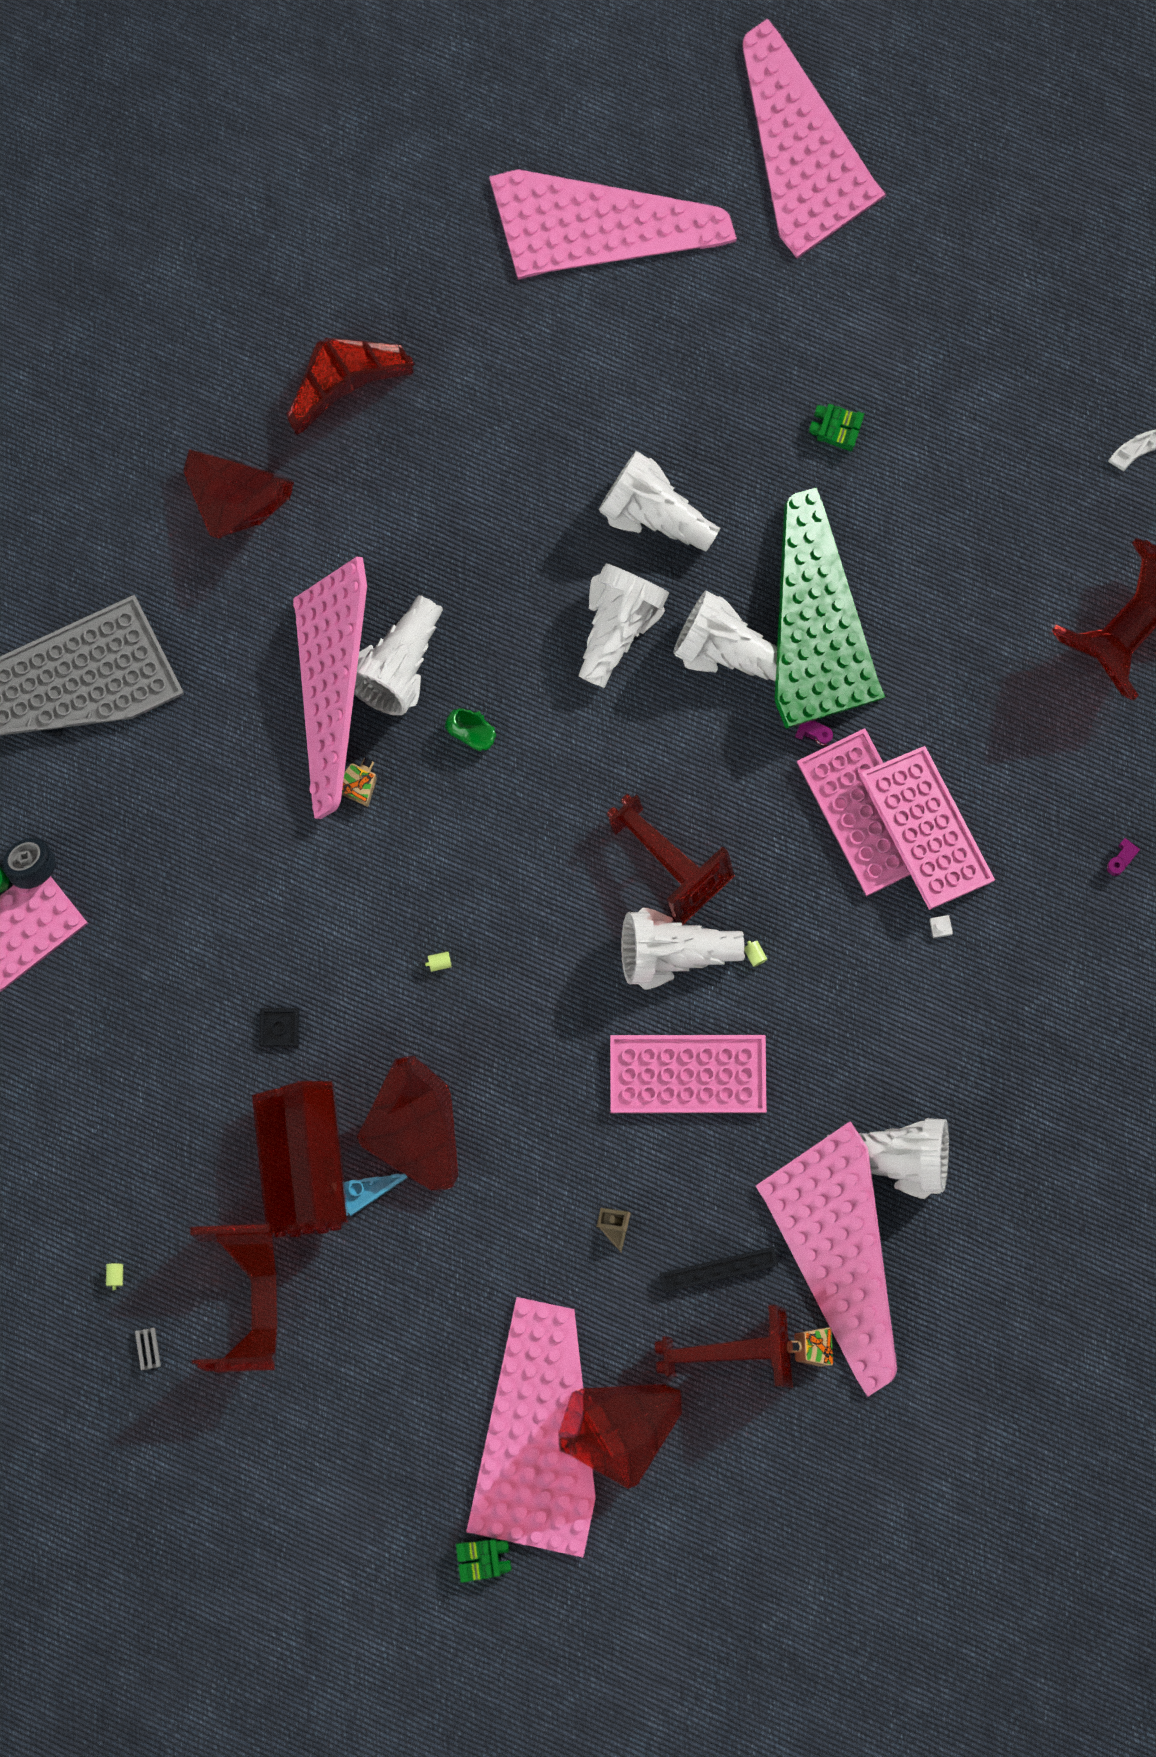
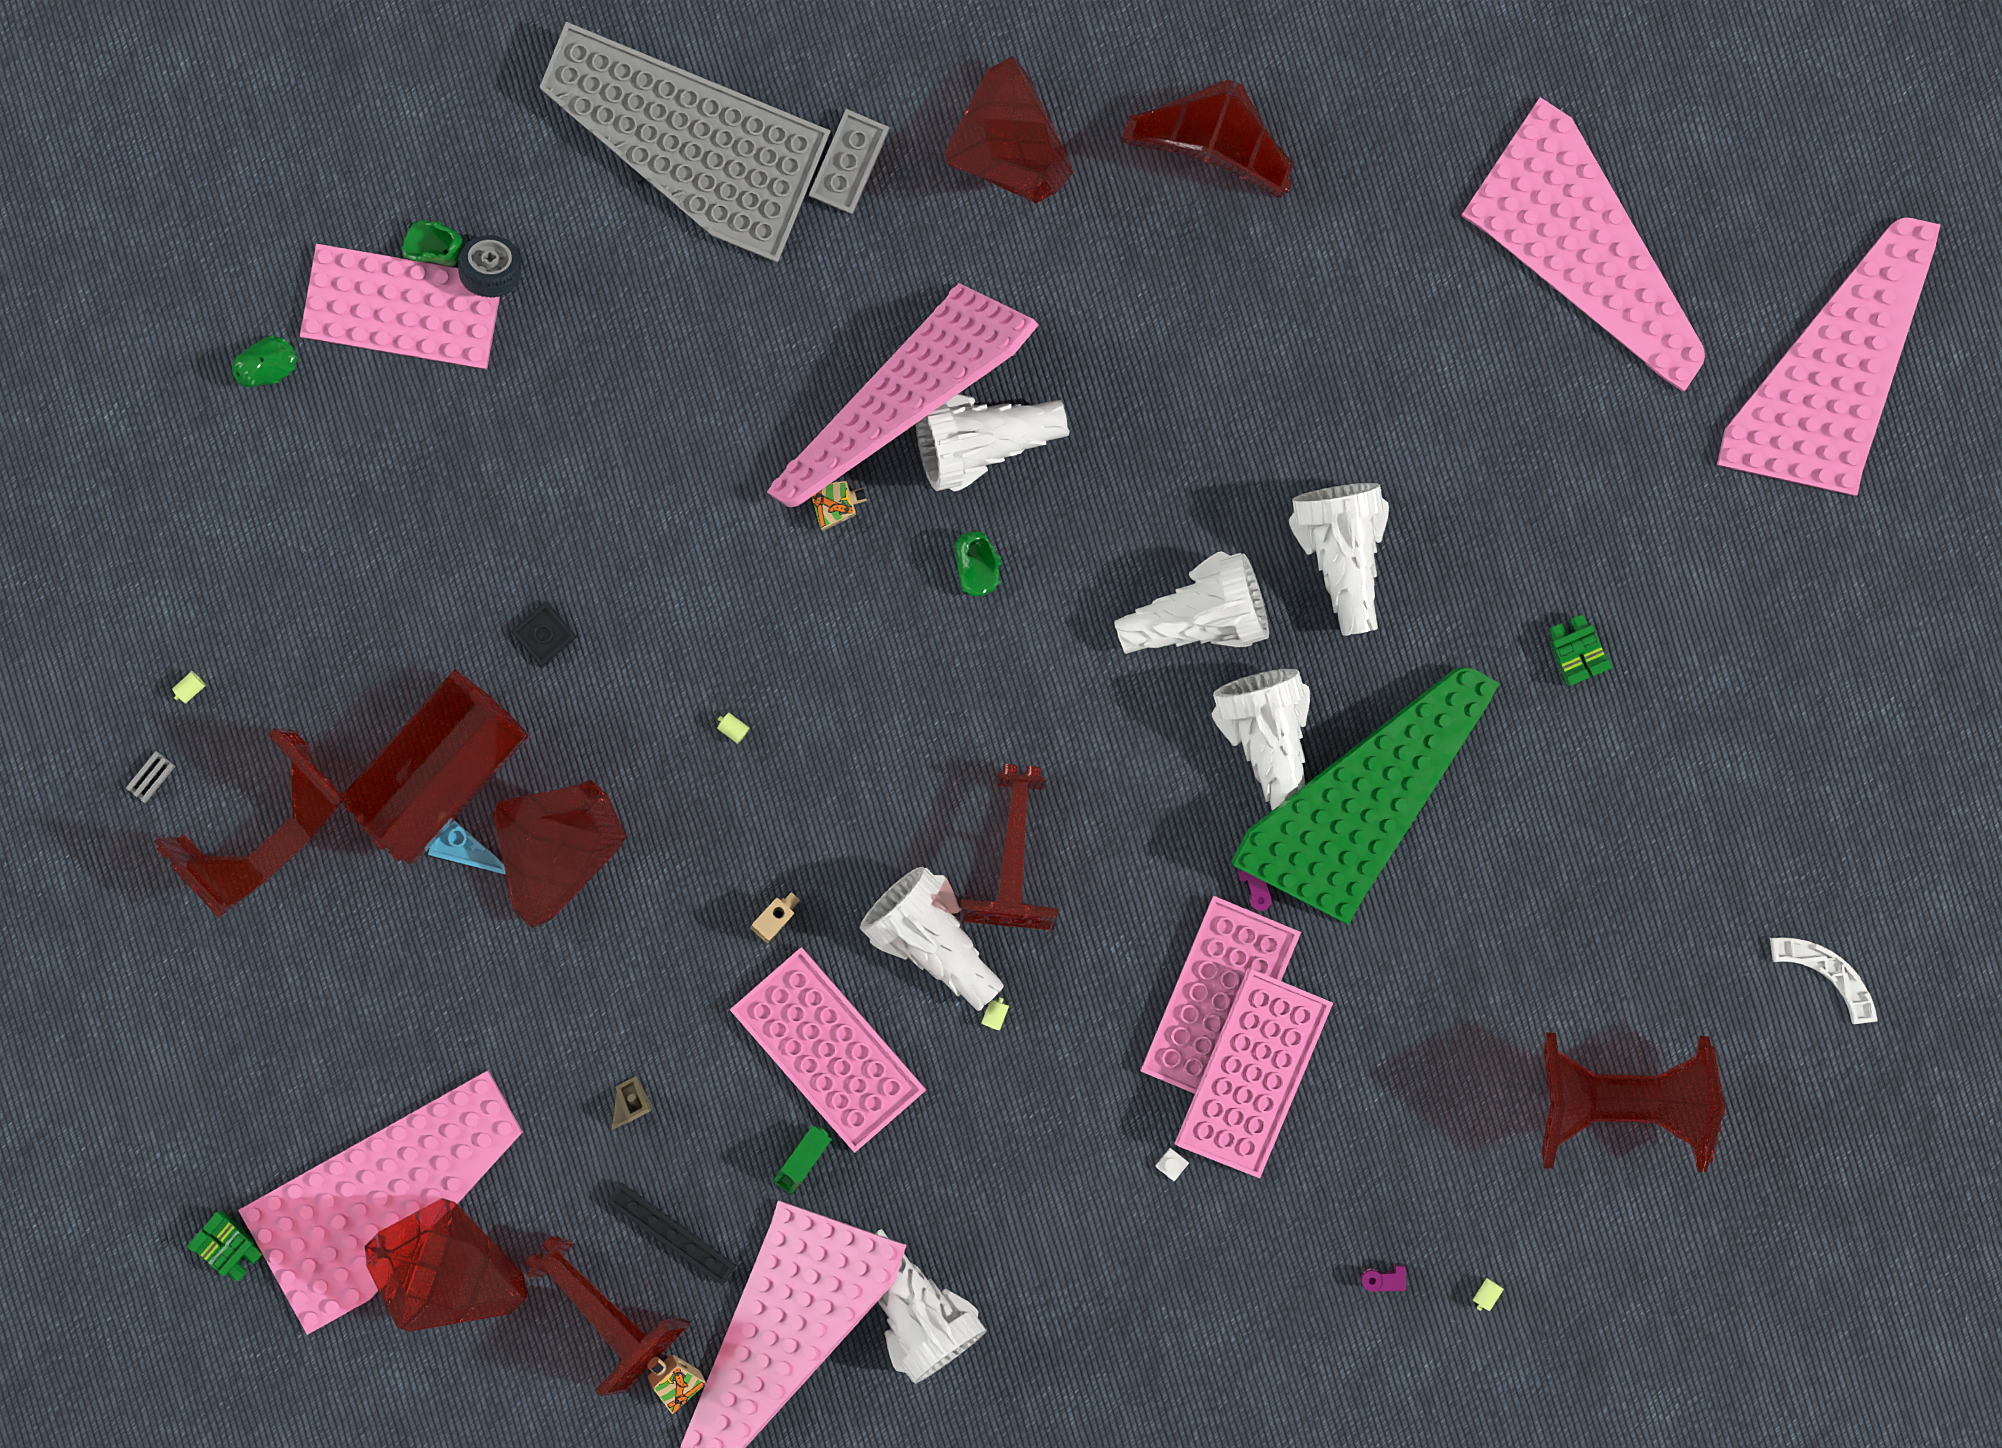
camera: 50 degrees right, 10 degrees up
(163, 600) = (849, 161): none -> light grey plate
(578, 1035) = (766, 925): none -> tan torso
(743, 1148) = (802, 1159): none -> green slope

